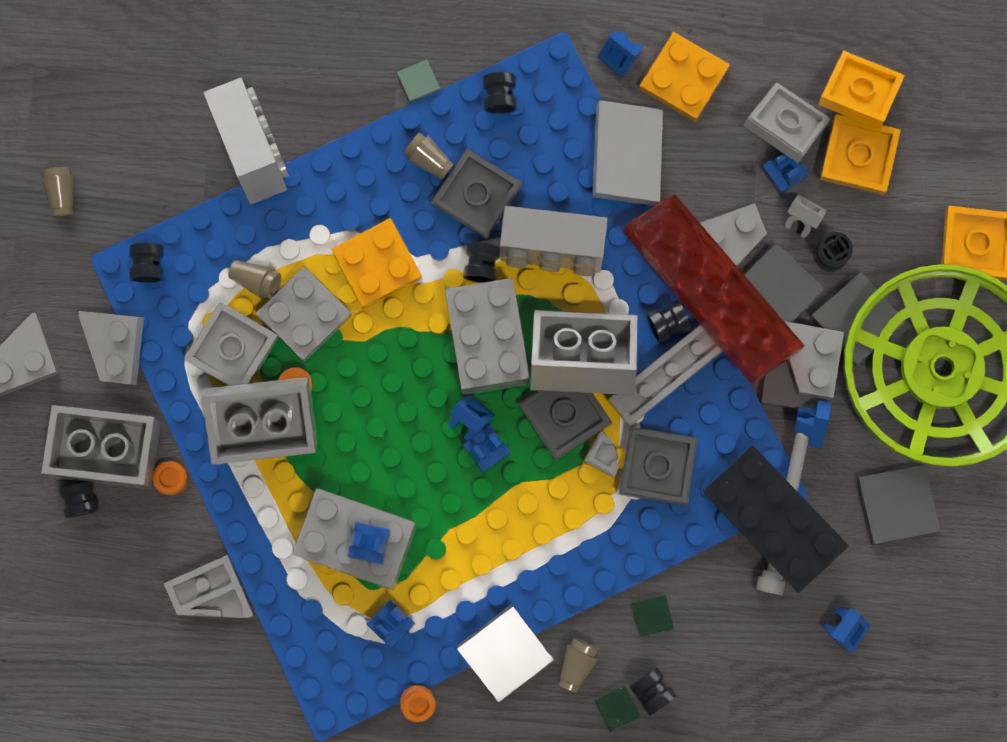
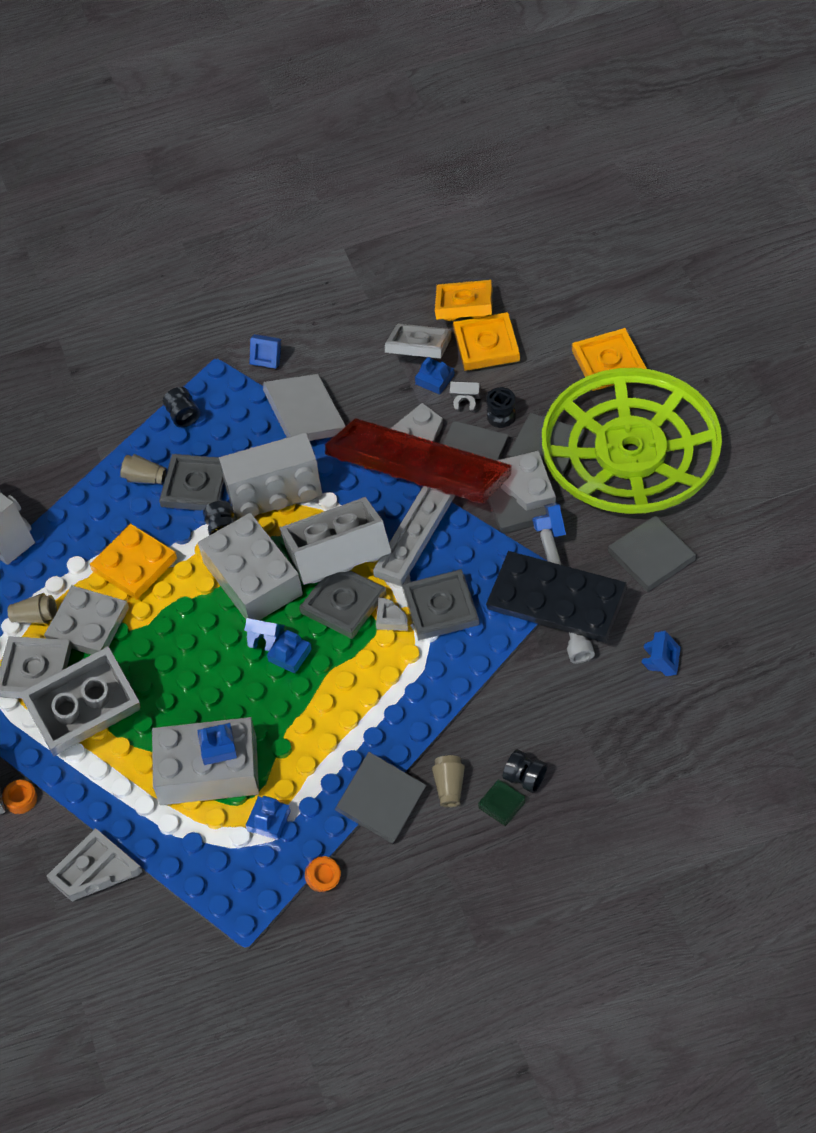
camera: 20 degrees left, 25 degrees down
(418, 81) = (112, 433): sand green tile -> none
(652, 616) = (494, 719): clear green tile -> none
(673, 321) = (394, 499): black wheel -> none
(684, 76) = (324, 349): light orange plate -> none

